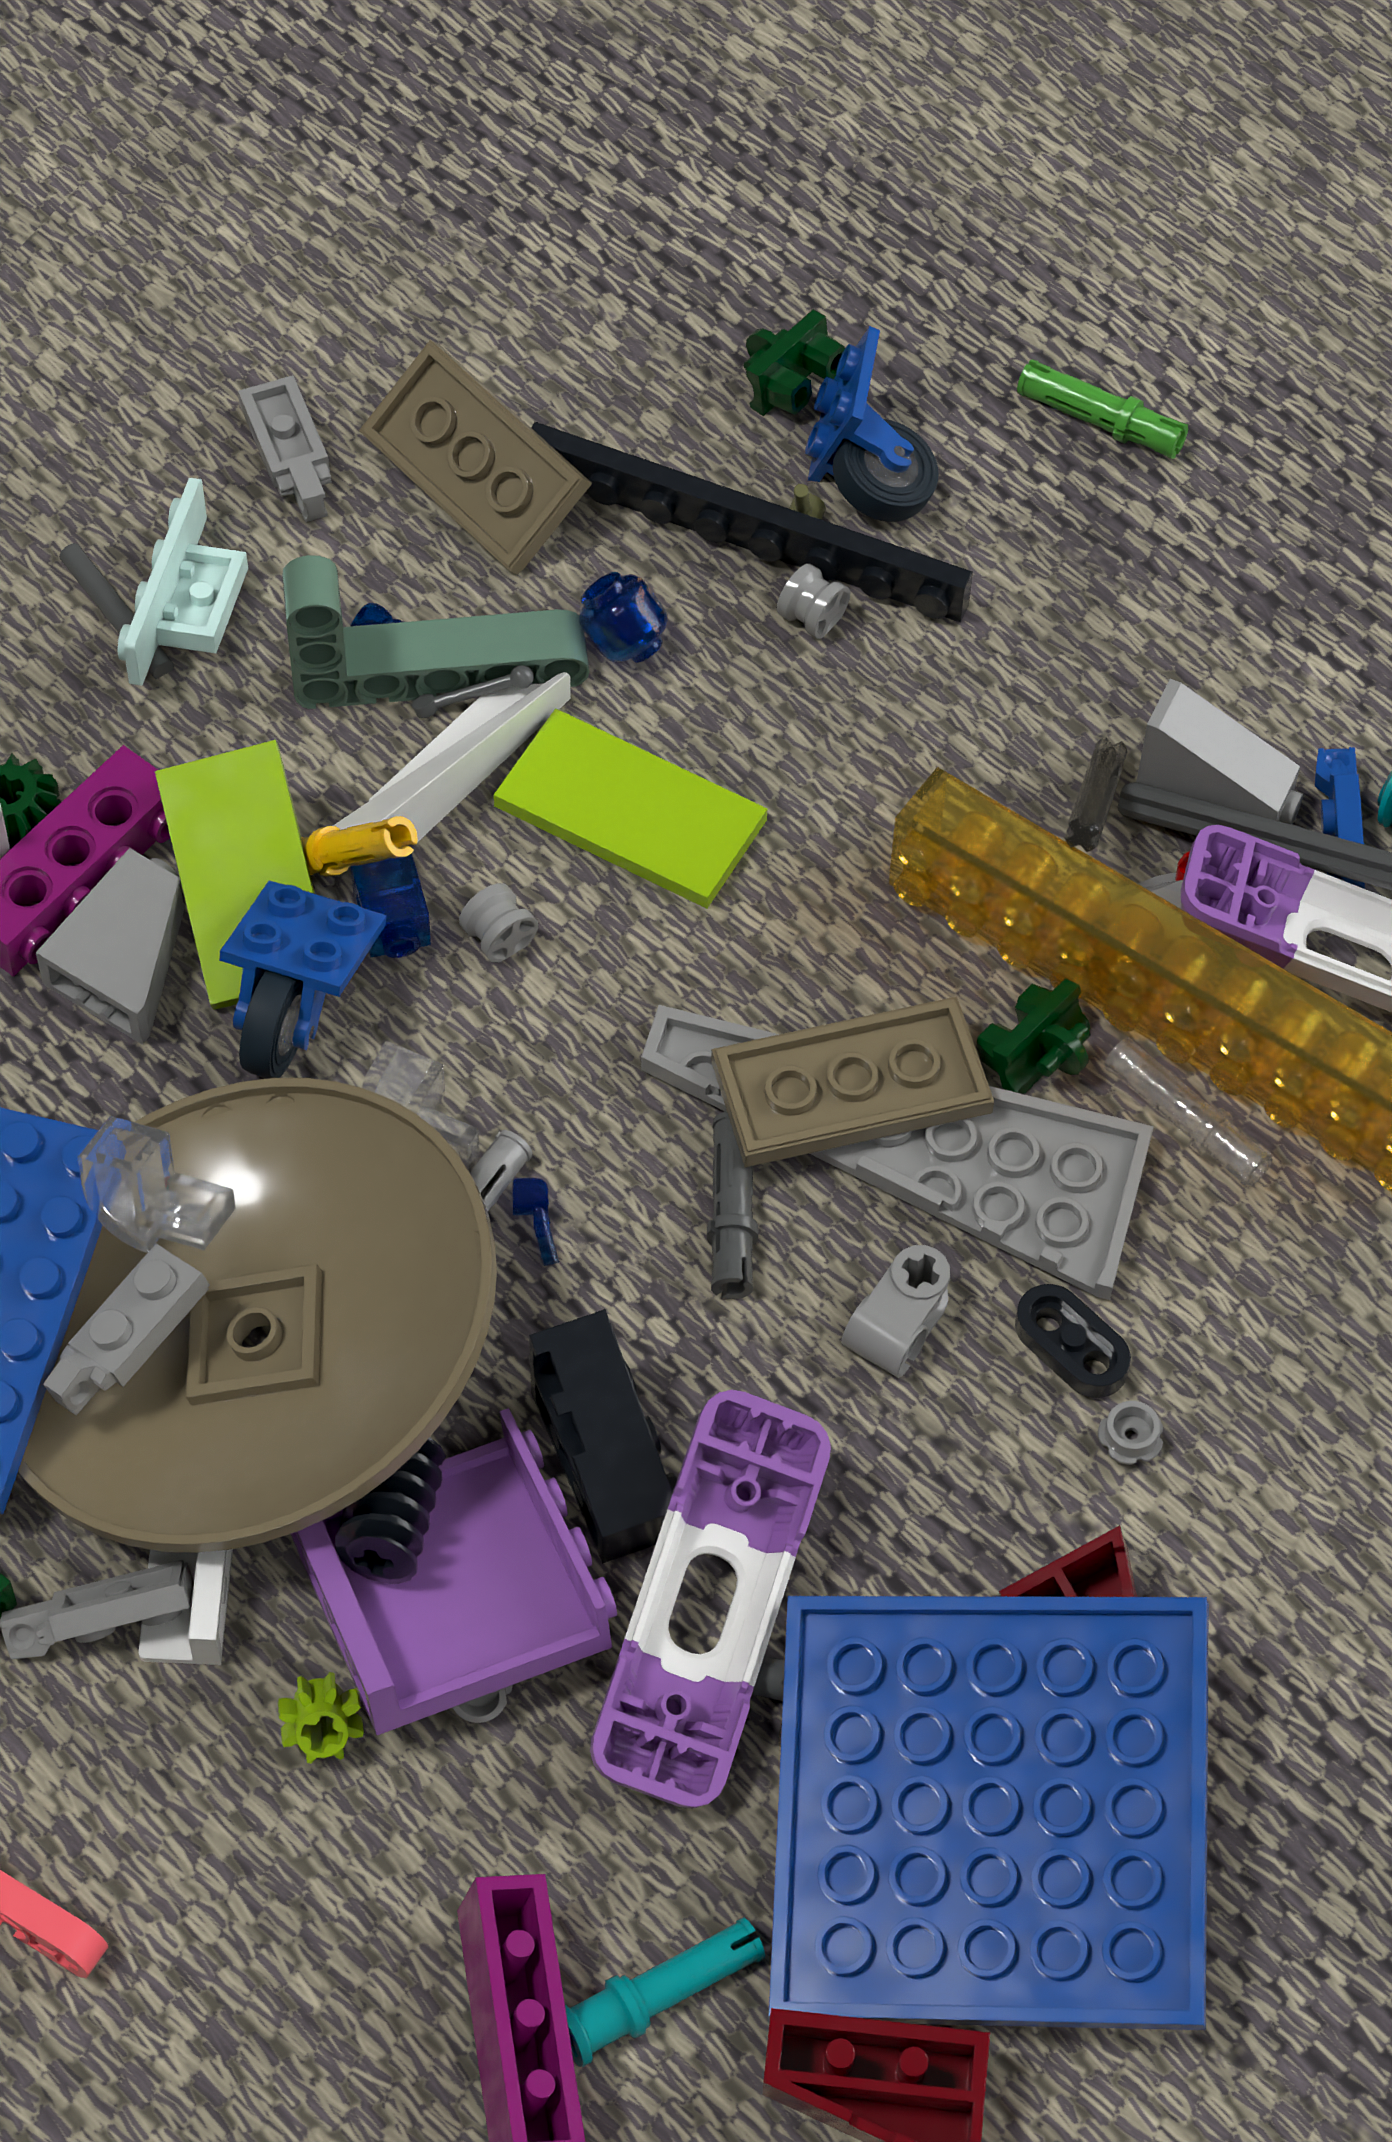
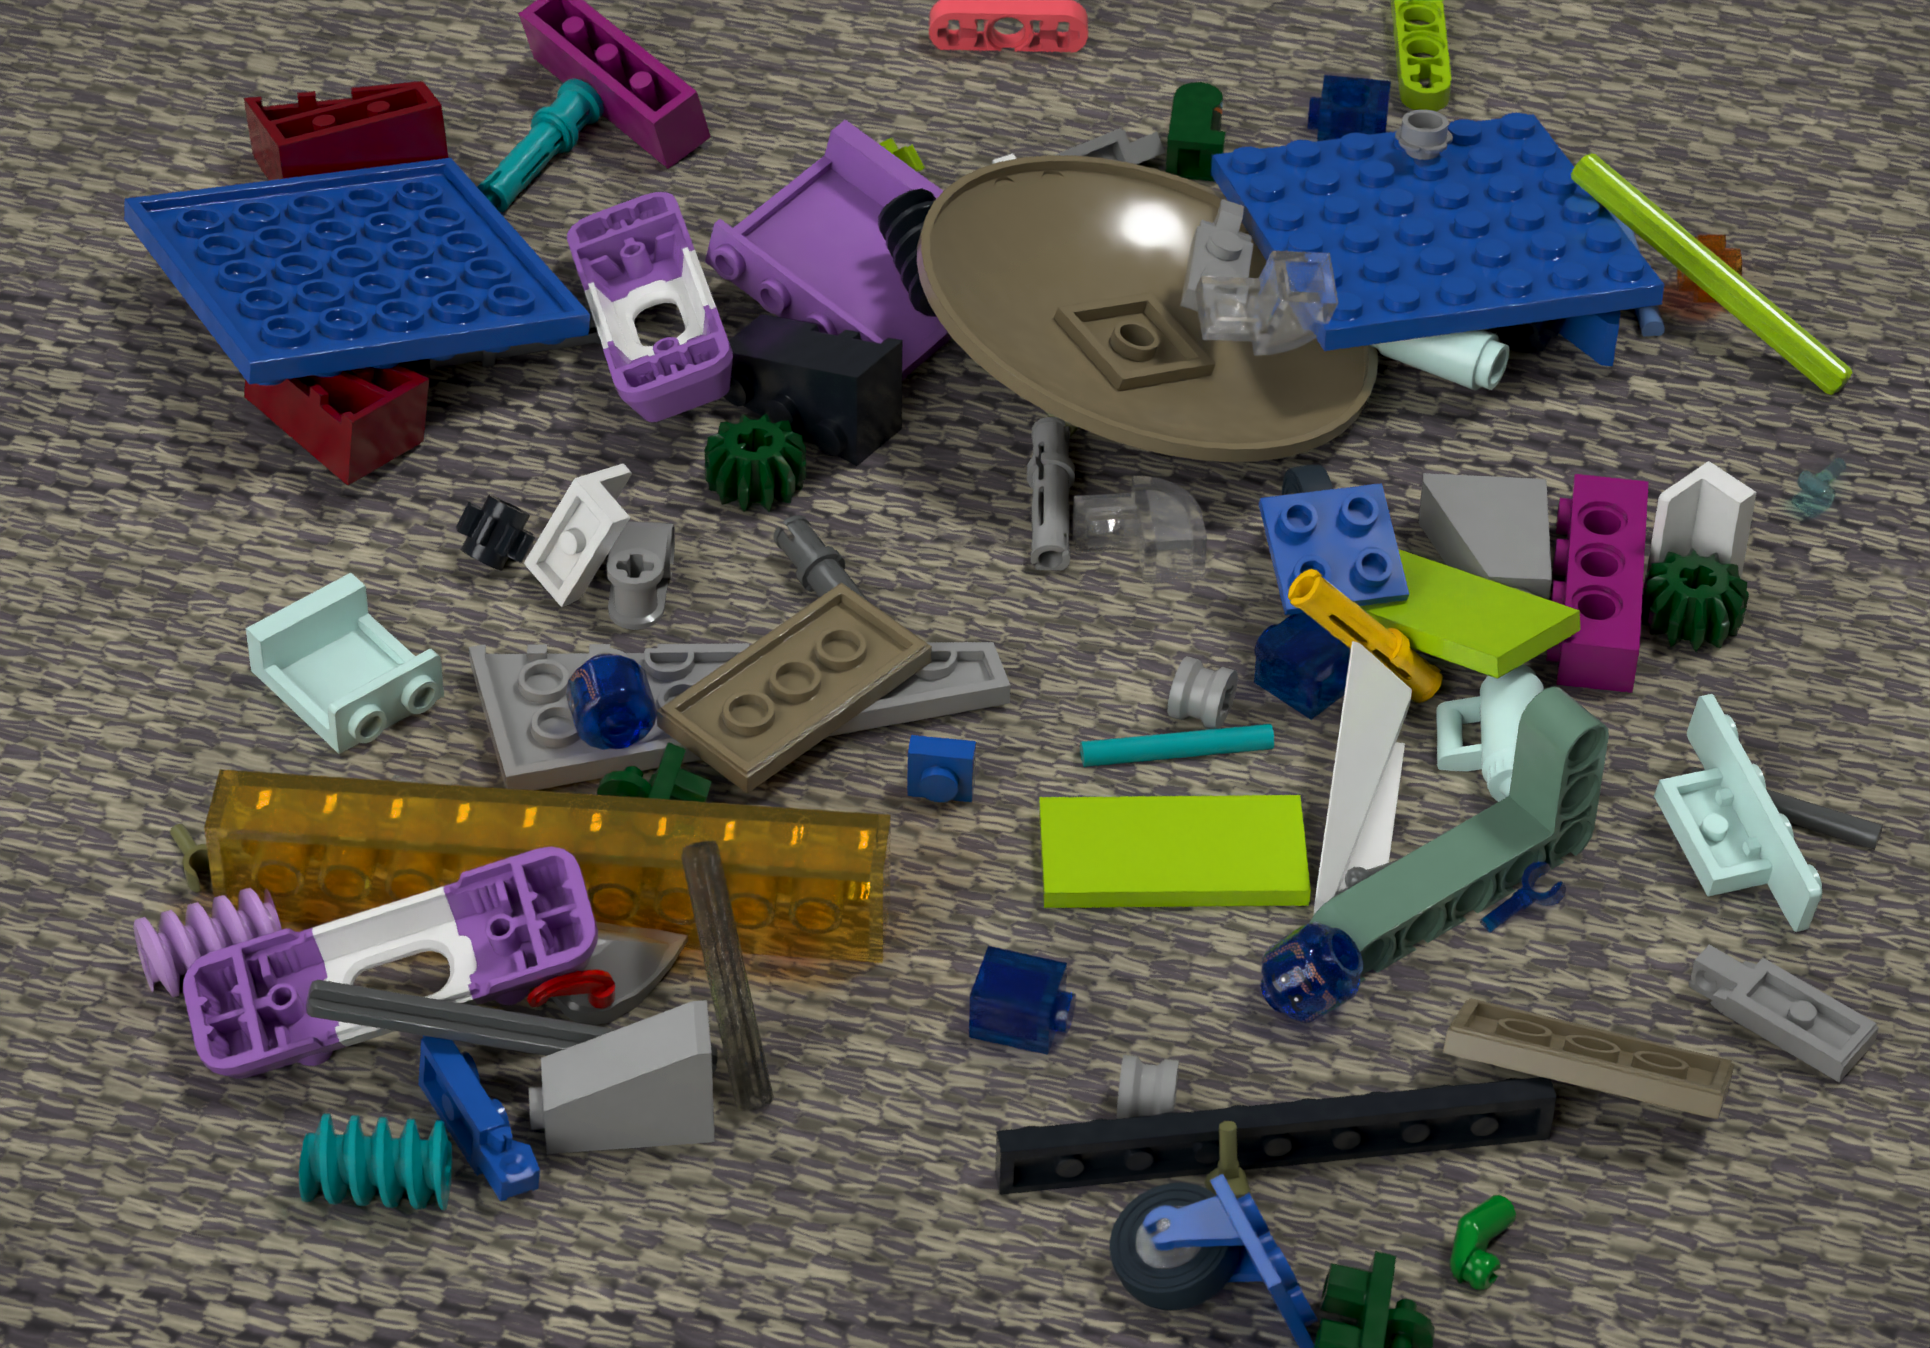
camera: 150 degrees right, 15 degrees down
(303, 735) = (1499, 711): none -> light aqua piece
(531, 1199) = (999, 532): clear blue hand -> none
(555, 907) = (1177, 745): none -> teal bar
(668, 390) = (1473, 1233): none -> green arm
(712, 1364) = (755, 462): none -> dark green gear
(774, 954) = (941, 768): none -> blue plate
(858, 716) = (1020, 1000): none -> clear blue brick
(944, 1339) = (580, 534): none -> white panel
(1015, 1414) = (495, 532): none -> black gear
(1032, 1122) = (611, 698): none -> clear blue head
(1077, 1340) = (482, 612): black plate -> none
(1137, 1418) = (393, 575): light grey plate -> none
(1230, 1333) = (342, 665): none -> light aqua panel

